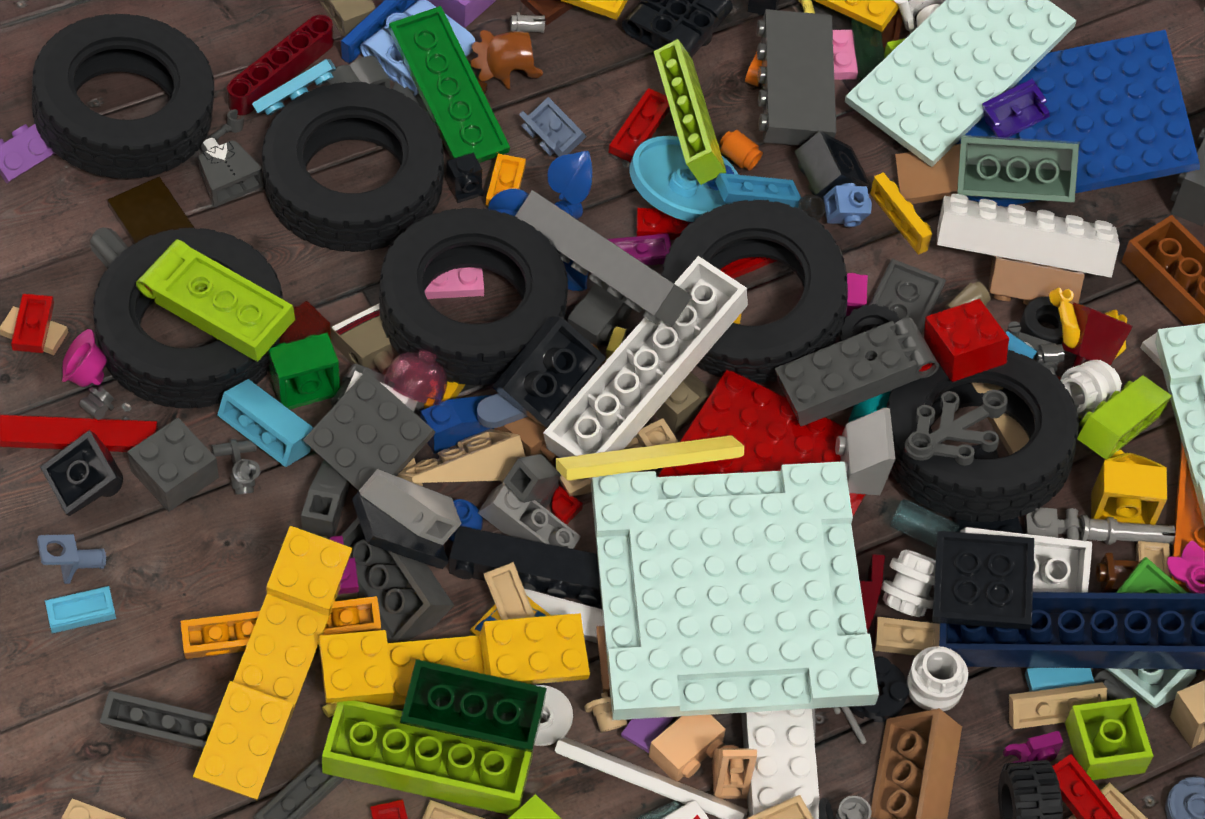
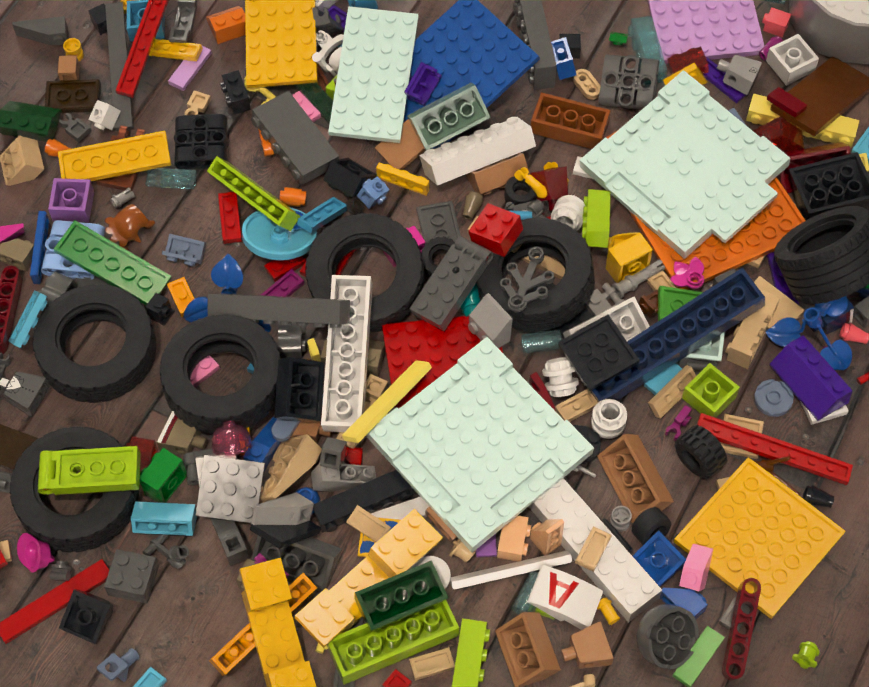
camera: 30 degrees left, 5 degrees up
(607, 38) = (171, 178): none -> clear light blue hinge

